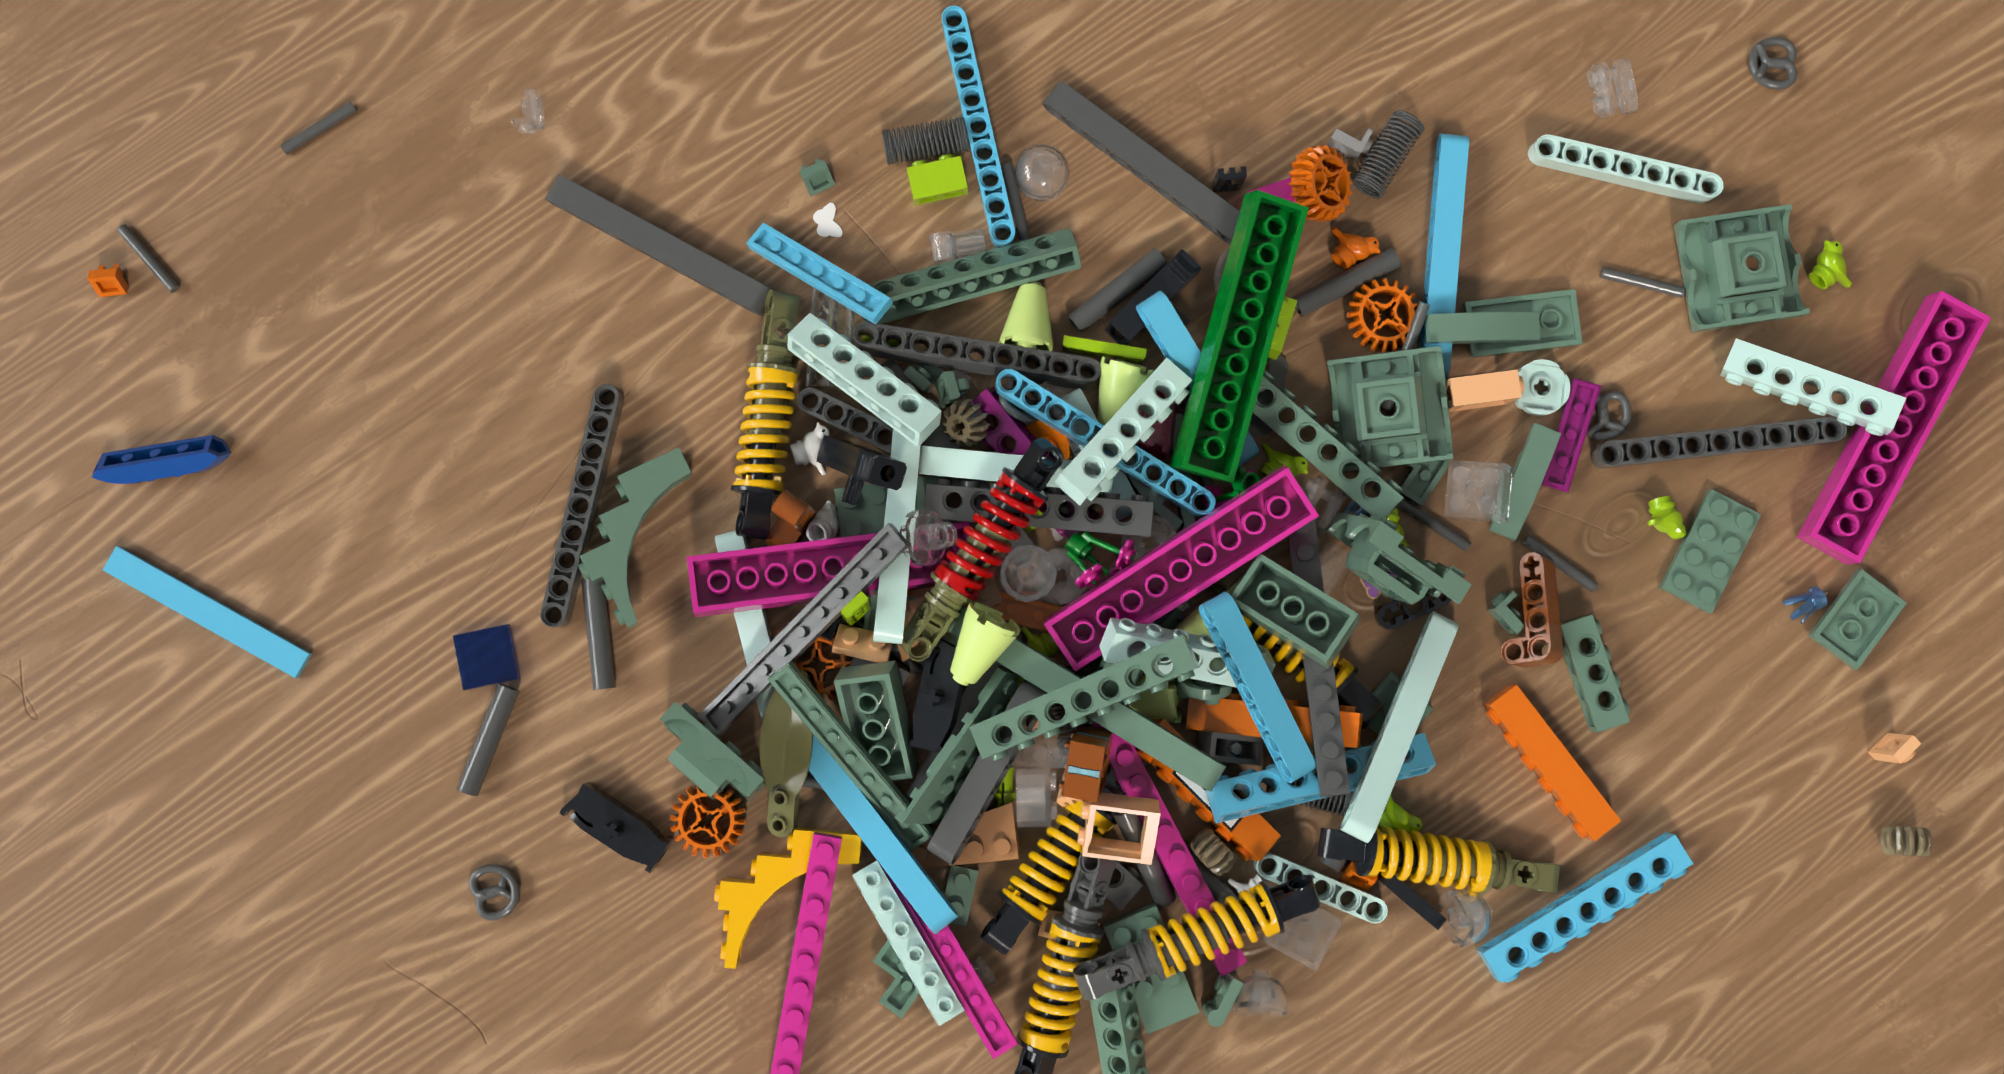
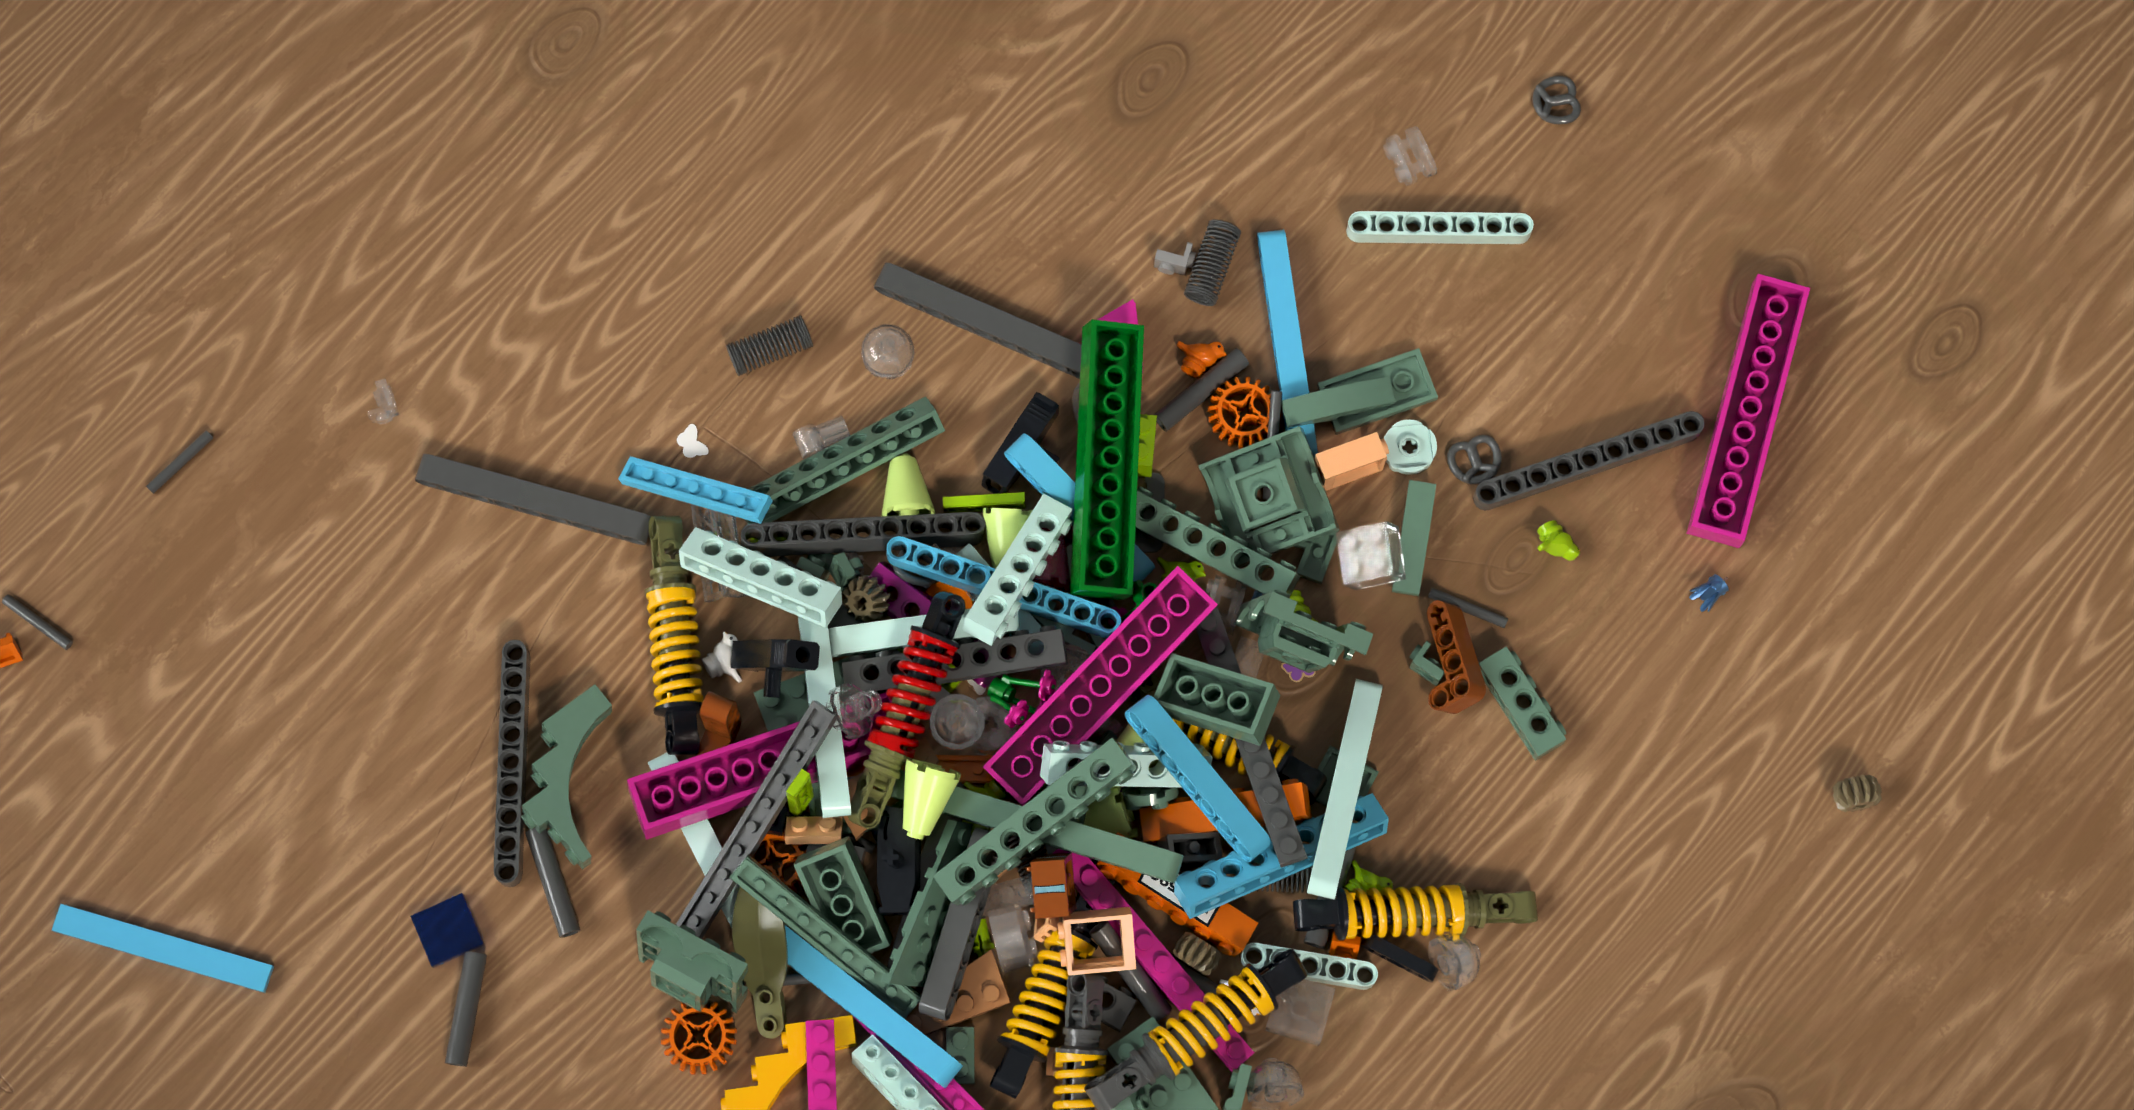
camera: 15 degrees left, 10 degrees down
(161, 460) = (89, 811): blue brick -> none
(617, 826) = (611, 1063): black piece -> none
(817, 177) = (673, 402): sand green tile -> none
(824, 524) = (750, 724): white animal -> none
(849, 417) = (754, 618): dark grey beam -> none
(937, 179) = (789, 379): lime brick -> none
(977, 114) = (813, 311): medium azure beam -> none
(1016, 202) = (868, 383): dark grey bar -> none
(1117, 290) = (983, 446): dark grey piece -> none
(1226, 179) = (1065, 315): black tile -> none
(1321, 182) = (1154, 302): orange gear -> none
(1398, 620) = (1358, 672): black beam -> none
(1430, 522) = (1337, 597): dark grey bar -> none
(1551, 762) = (1503, 796): orange brick -> none
(1573, 432) = (1449, 485): magenta tile -> none
(1642, 282) = (1482, 328): dark grey bar -> none
(1674, 865) = (1633, 854): medium azure brick -> none
(1709, 551) = (1607, 565): sand green plate -> none
(1714, 267) = (1543, 300): sand green piece -> none
(1830, 267) = (1654, 275): lime animal -> none
(1857, 619) = (1761, 596): sand green plate -> none
(1885, 404) = (1592, 373): light aqua brick -> none
(1895, 748) = (1824, 707): light nougat plate -> none

